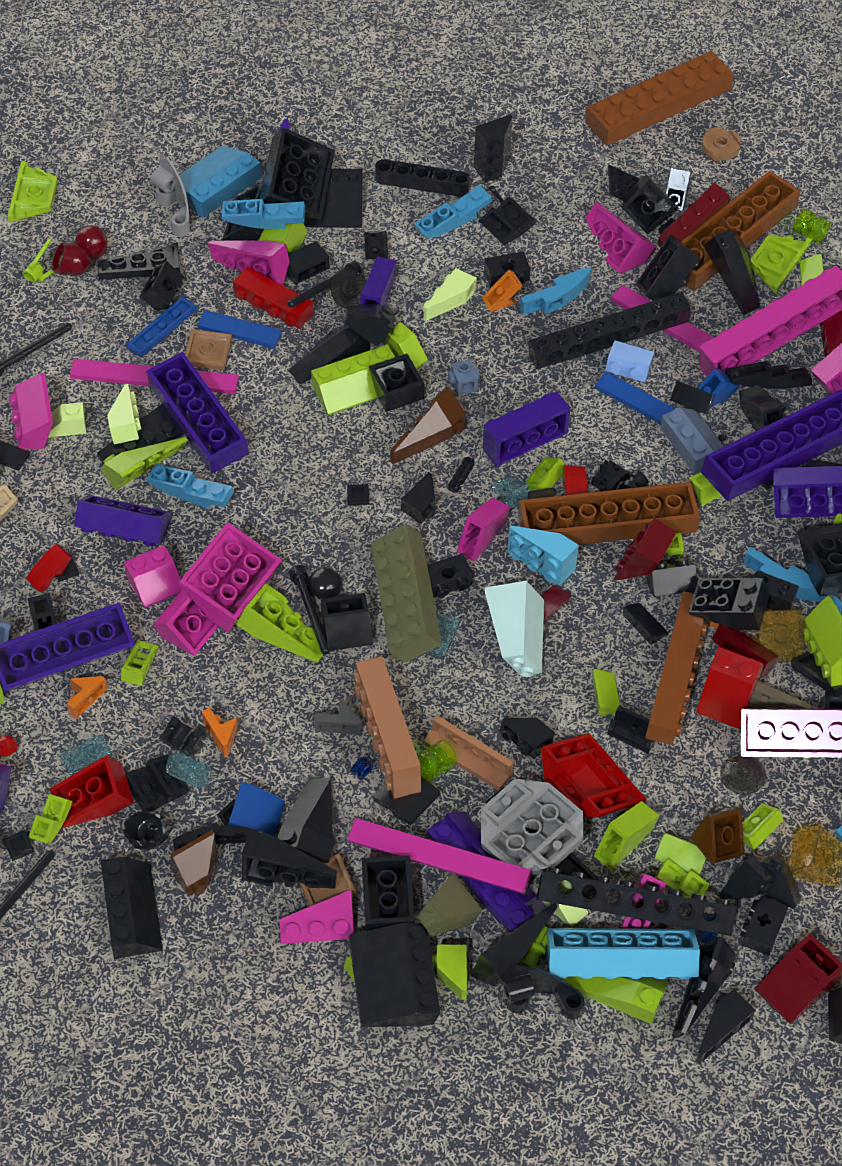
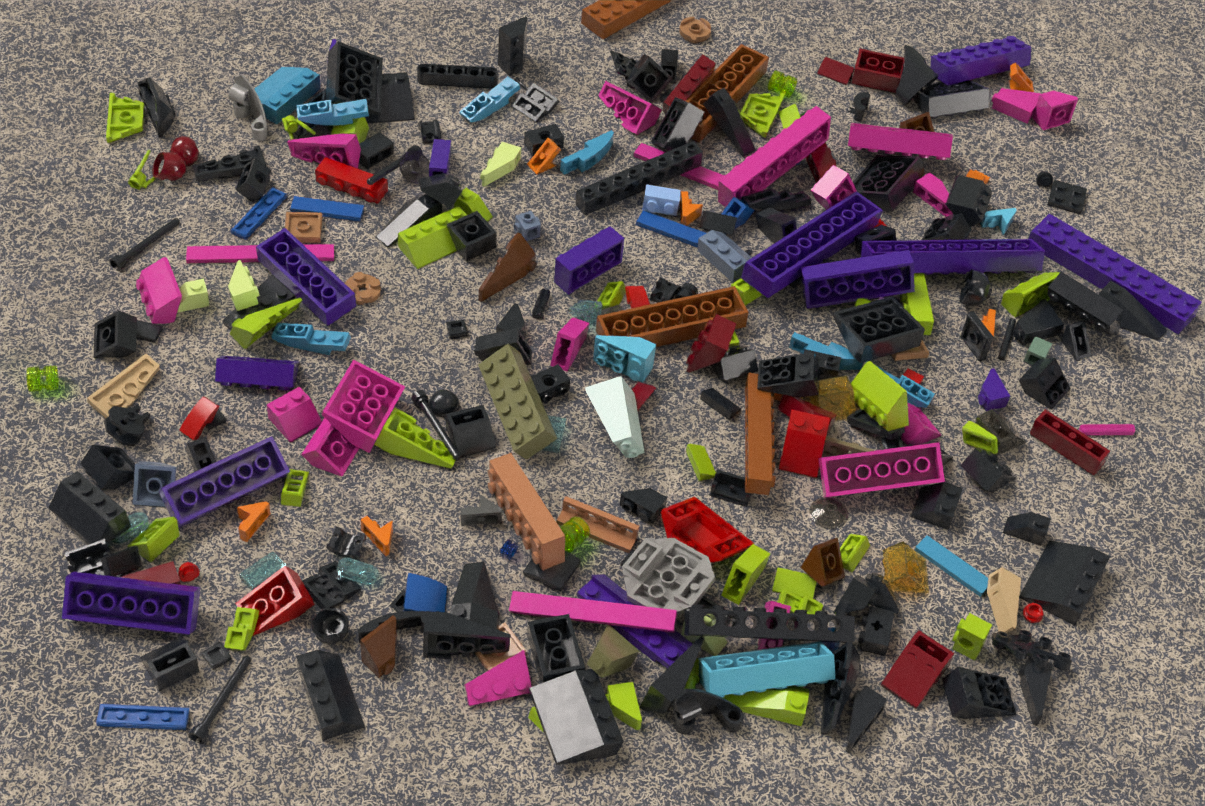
camera: 15 degrees left, 5 degrees down
(71, 183) = (157, 105): none -> black wedge
(217, 224) = (291, 125): none -> lime plant
(259, 422) = (371, 285): none -> medium nougat plate
(416, 516) = (491, 343): none -> black slope
(661, 379) = (688, 211): none -> orange slope

